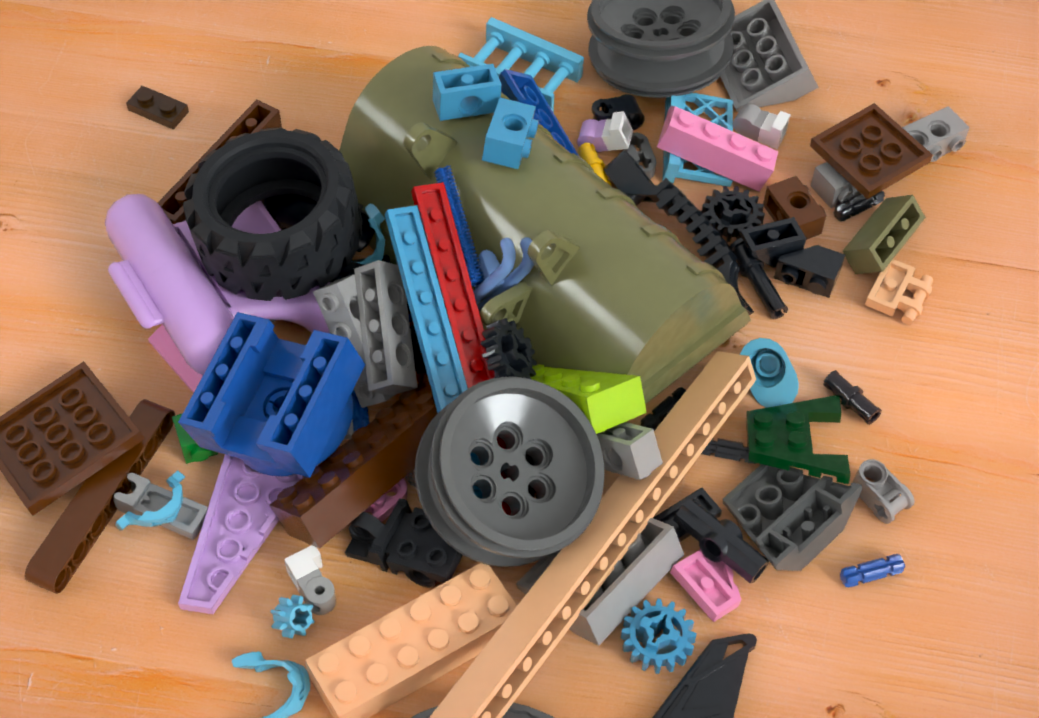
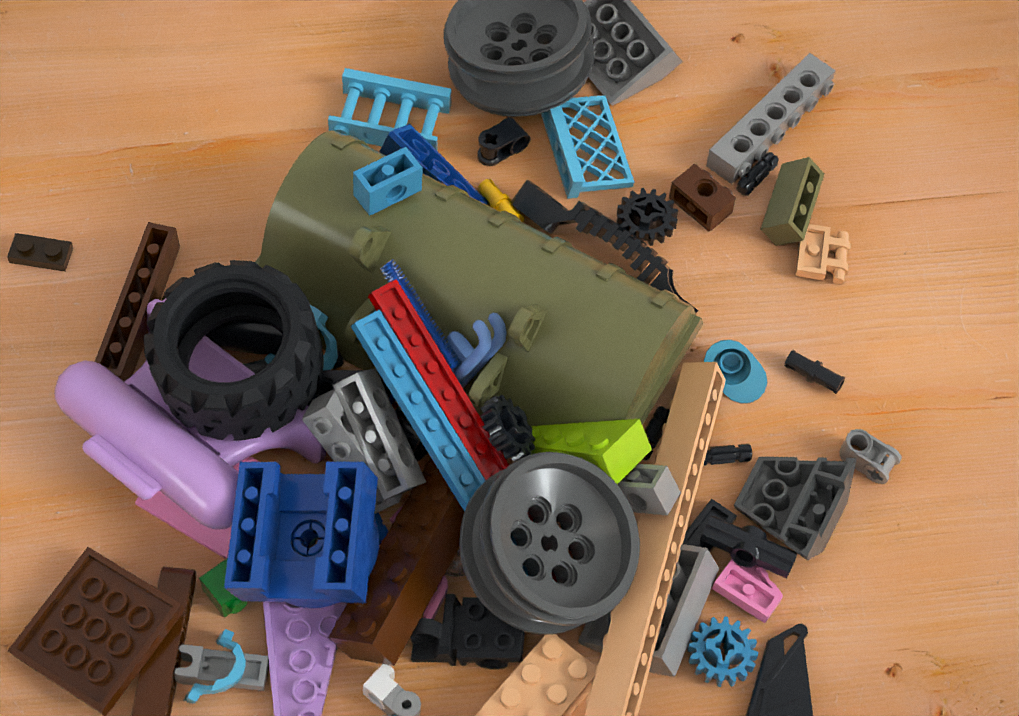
camera: 20 degrees left, 5 degrees up
(510, 133) = (443, 213): dark azure brick -> none
(607, 133) = (500, 165): leg -> none
(645, 154) = (541, 176): dark grey beam -> none
(717, 148) = (612, 154): bright pink slope -> none
(753, 269) = (683, 267): black pin -> none
(761, 125) = (641, 115): leg -> none
(773, 240) = (699, 237): black slope -> none
(782, 437) = (768, 431): dark green wing -> none
(811, 269) = (738, 254): black slope -> none
(870, 150) = (756, 120): reddish brown plate -> none
(872, 570) = (884, 532): blue axle -> none

